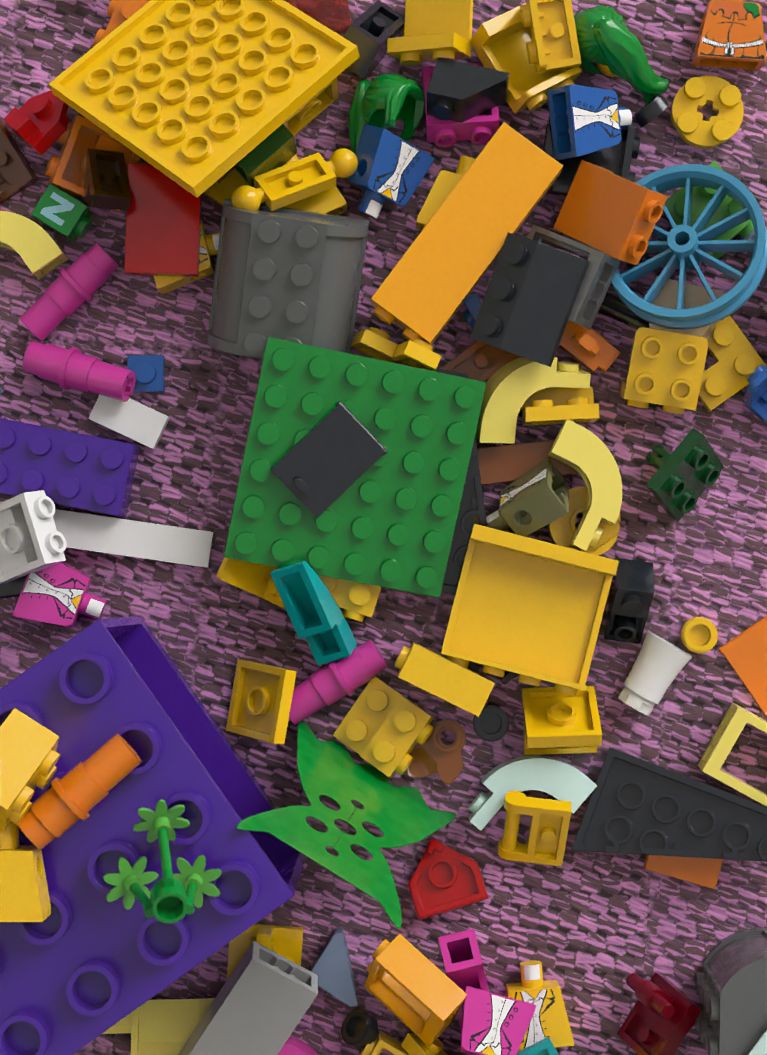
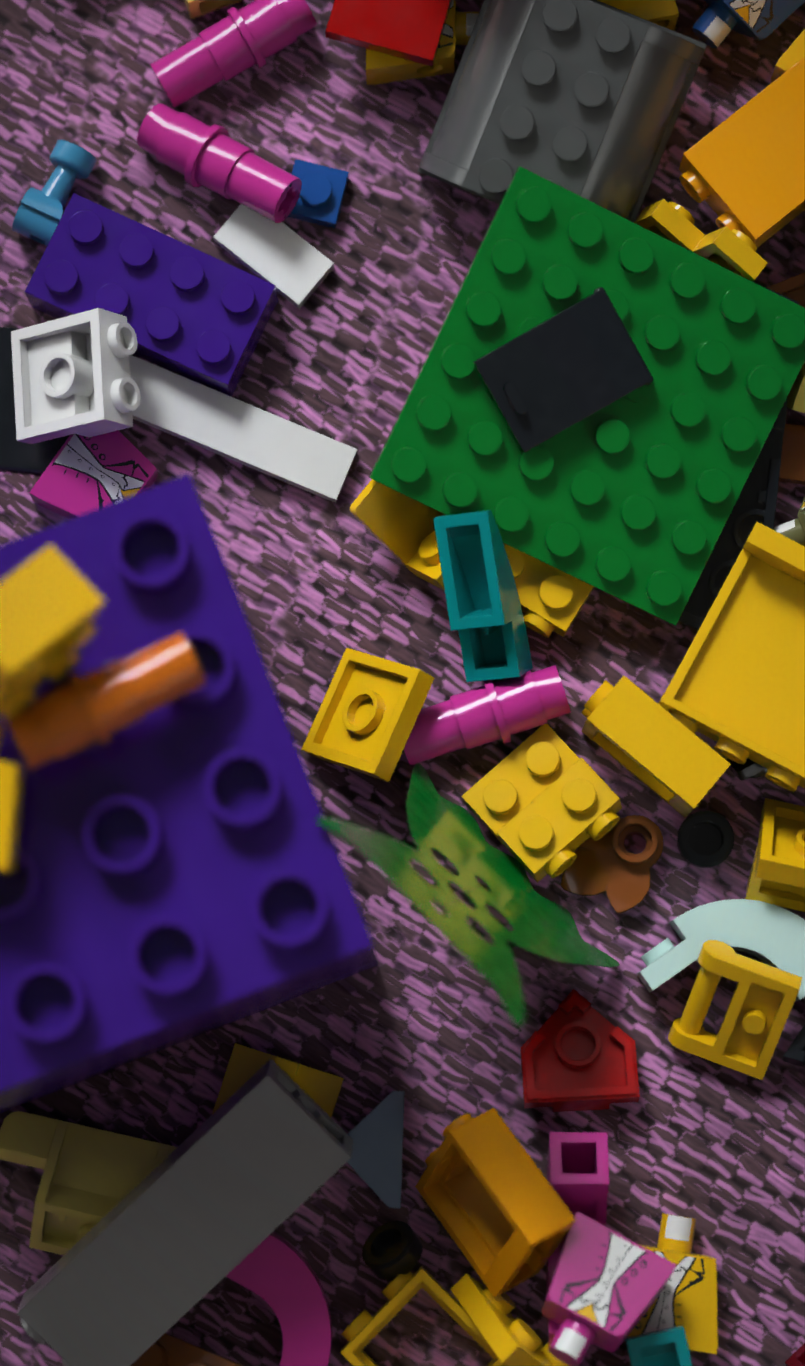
camera: 15 degrees right, 5 degrees down
(174, 893) = (208, 869): bright green plant -> none

